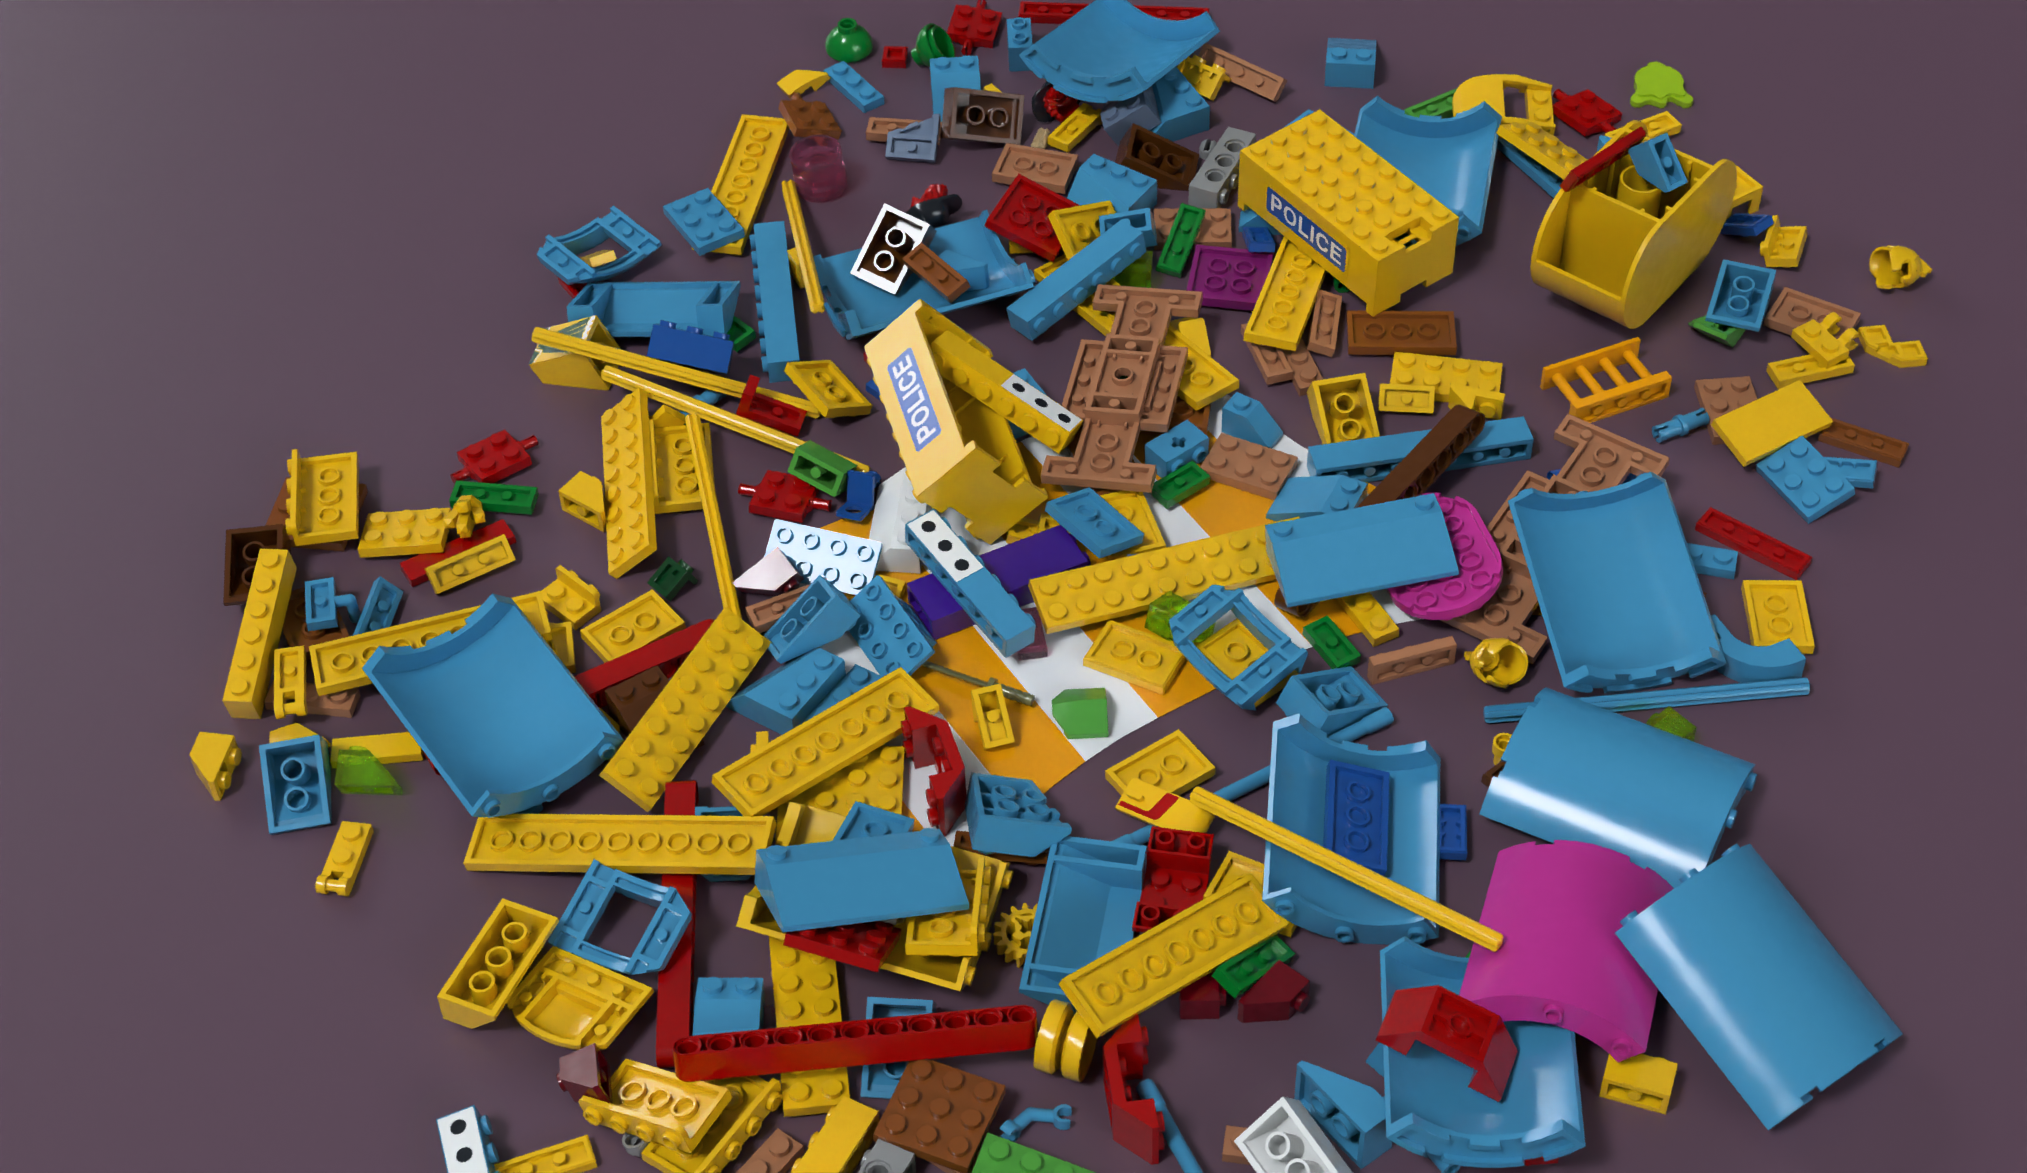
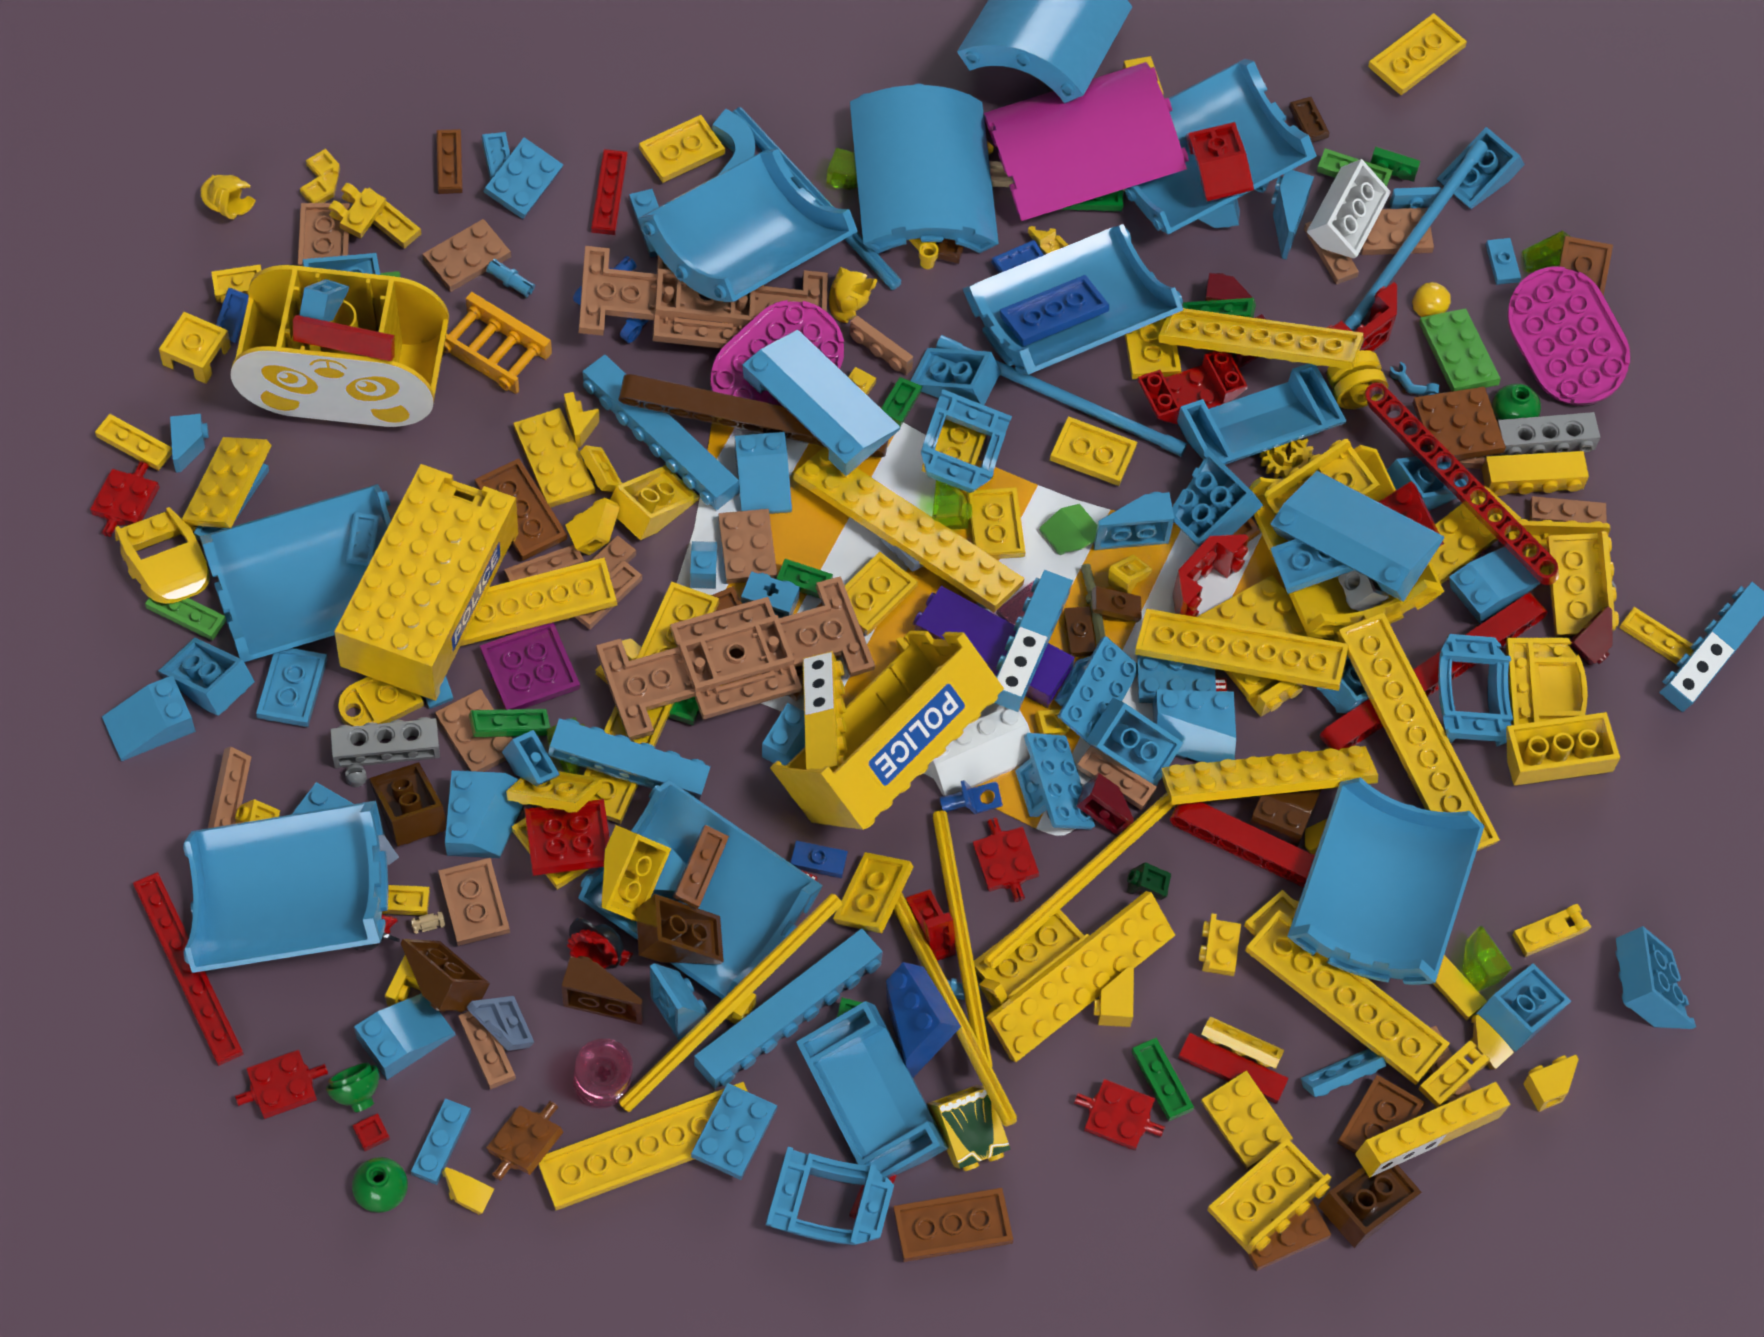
camera: 130 degrees left, 15 degrees up
(215, 896) = (1651, 979): none -> dark azure wedge
(322, 604) = (1369, 1109): dark azure plate -> none
(464, 515) = (1204, 1076): yellow rock -> none
(510, 317) = (953, 1224): none -> dark orange plate
(599, 258) = (839, 1192): yellow tile -> none
(632, 627) = (1217, 876): yellow plate -> none
(821, 468) = (970, 834): bright green brick -> none
(837, 216) = (675, 1000): none -> dark azure slope
(888, 183) = (596, 991): none -> reddish brown slope
(959, 702) = (1116, 604): none -> reddish brown plate
(965, 659) = (1079, 631): none -> reddish brown plate
(968, 228) = (630, 871): none -> yellow slope
(1018, 40) = (297, 1015): dark azure brick -> none
(1033, 748) = (1137, 523): none -> dark azure slope
(1094, 522) = (902, 597): dark azure plate -> none
(1162, 808) = (1133, 423): yellow door -> none
(1258, 239) = (470, 664): blue plate -> none
(1340, 358) = (594, 526): none -> yellow slope
(1347, 869) = (1131, 332): yellow axle -> none
(1352, 89) = (208, 675): none -> dark azure slope
(1457, 876) = (1046, 240): none -> yellow slope
(1658, 85) = (48, 460): lime tile -> none
(1771, 423) = (483, 210): yellow tile -> none

